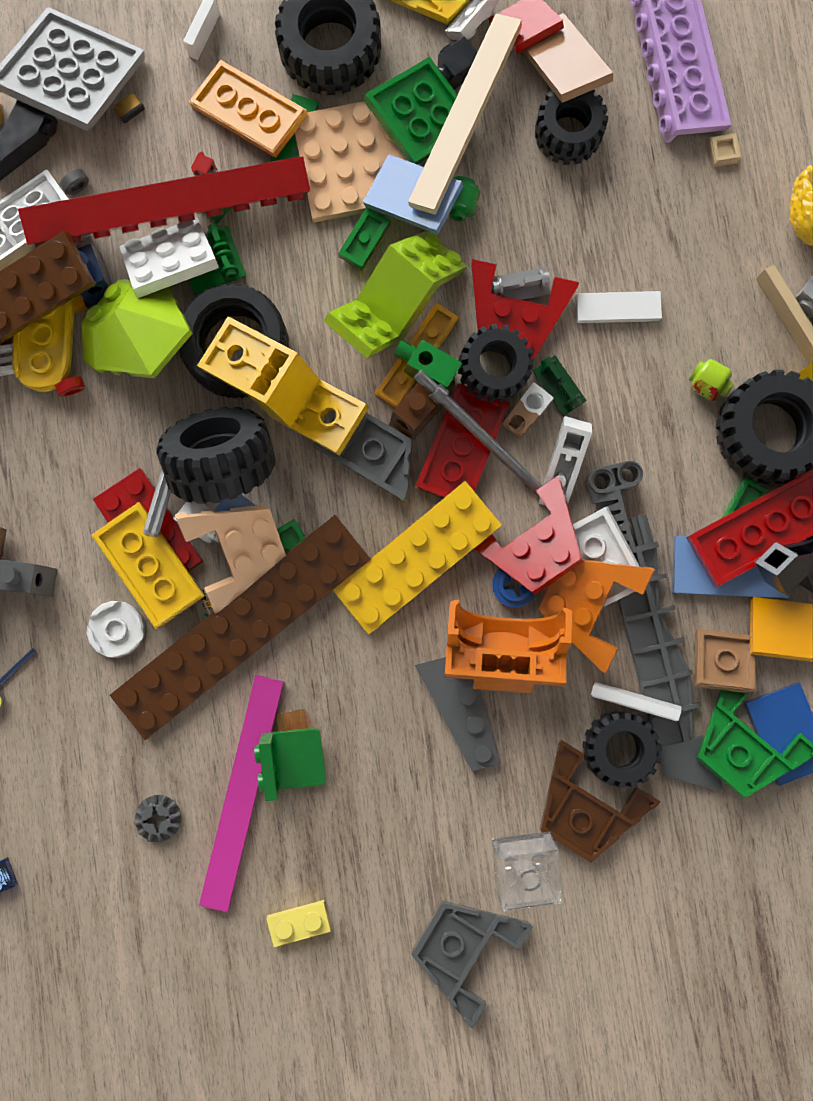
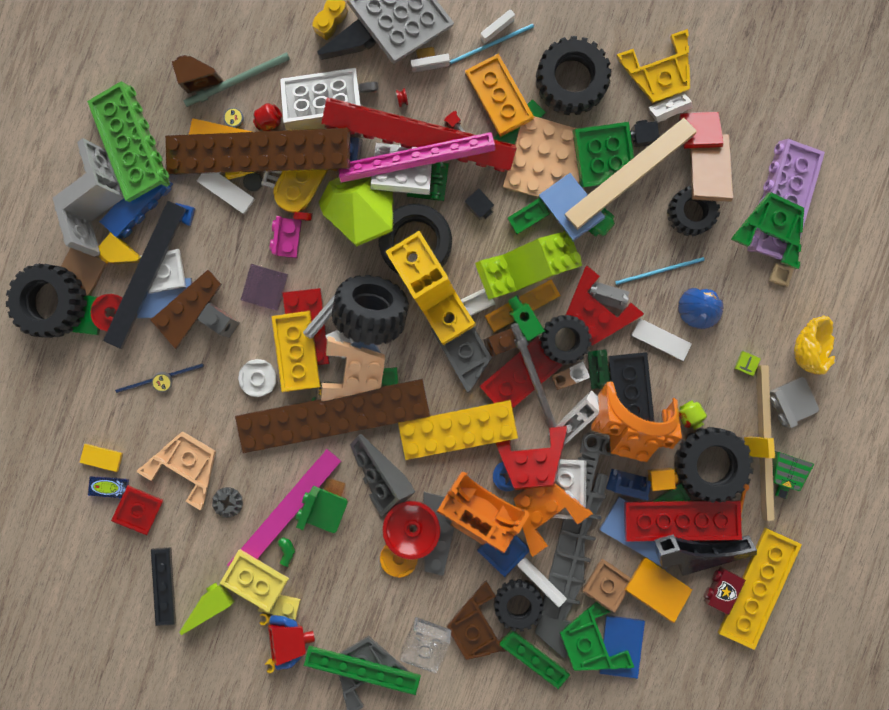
camera: 25 degrees right, 5 degrees up
(38, 894) = (137, 510): none -> red tile
(61, 426) = (286, 237): none -> dark pink bracket
(65, 505) = (264, 287): none -> clear purple tile
(74, 787) = (187, 458): none -> light nougat wing
(124, 173) = (402, 97): none -> red bush
(126, 982) = (163, 586): none -> black tile
(138, 112) = (430, 63): none -> white tile
(169, 98) = (491, 44): none -> medium azure piece
(178, 226) = (418, 157): none -> dark pink tile
(201, 974) = (211, 603): none -> lime slope
(247, 907) = (254, 581): none -> light yellow tile
(273, 840) = (288, 551): none -> green arm
(294, 255) = (479, 205): none -> black brick
(333, 969) = (286, 641): none -> red torso
(355, 675) = (385, 480): none -> dark grey wedge
(358, 378) = (477, 302): none -> white tile
(407, 735) = (399, 535): none -> red dish
(428, 772) = (395, 565): none -> light orange tile
(457, 953) = (362, 670): none -> green tile
(566, 700) = (505, 561): none -> blue tile
(568, 223) = (659, 270): none -> medium azure piece
(617, 392) = (632, 383): none -> black plate
(647, 240) = (700, 308): none -> blue hair
(647, 436) = (630, 434): none -> orange piece
(679, 511) = (629, 484): none -> dark blue hinge
(682, 811) = (534, 659): none -> green tile
(688, 76) = (778, 219): none -> green wing
(719, 482) = (662, 479): none -> light orange brick
(744, 280) = (747, 363): none -> lime tile

